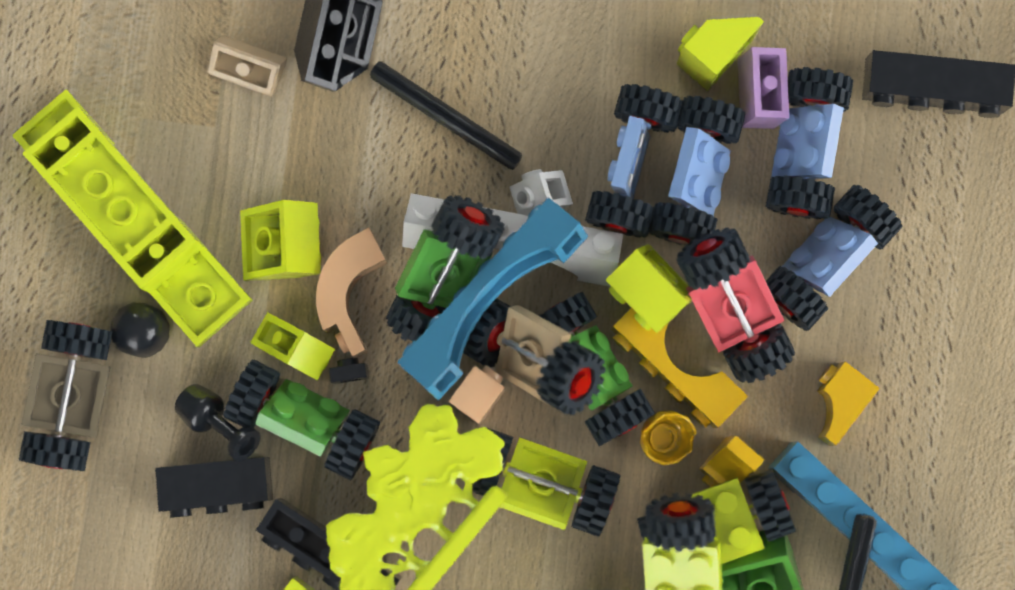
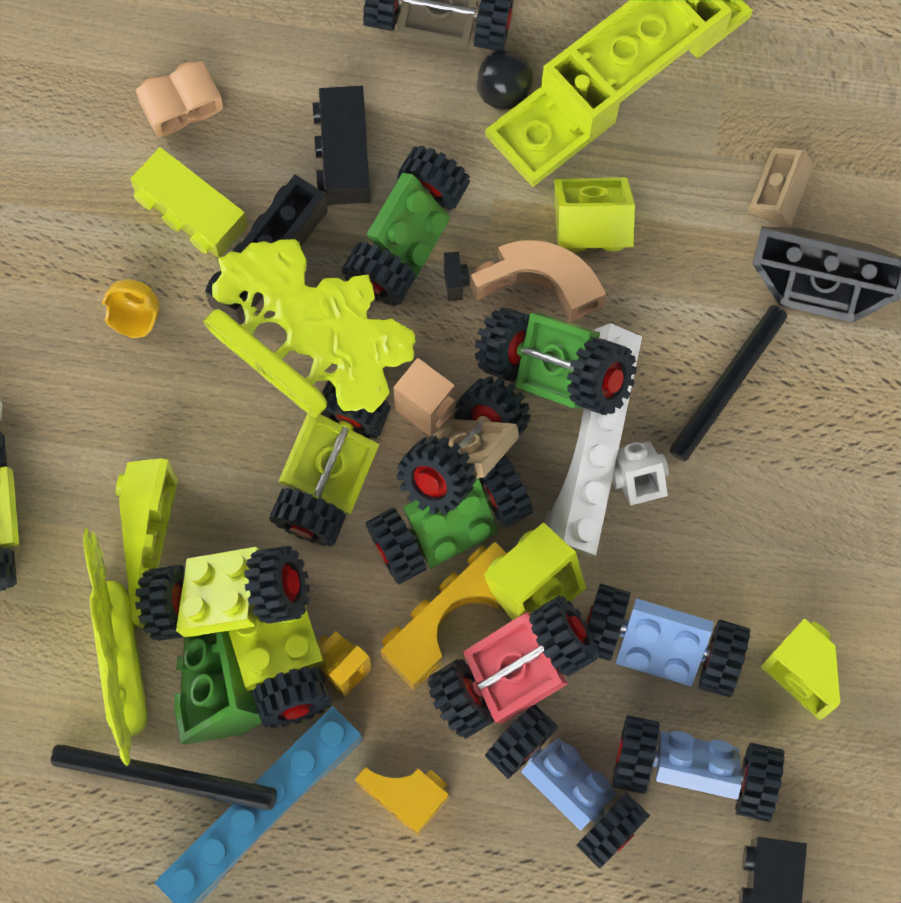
camera: 90 degrees right, 10 degrees down
(204, 410) = (420, 128): black piece -> none
(292, 346) = (482, 222): neon yellow slope -> none
(543, 238) = (468, 346): dark azure arch -> none
(641, 110) = (679, 568): black plate -> none
(667, 437) = (372, 598): yellow hair -> none
(763, 87) = (762, 719): lavender brick -> none

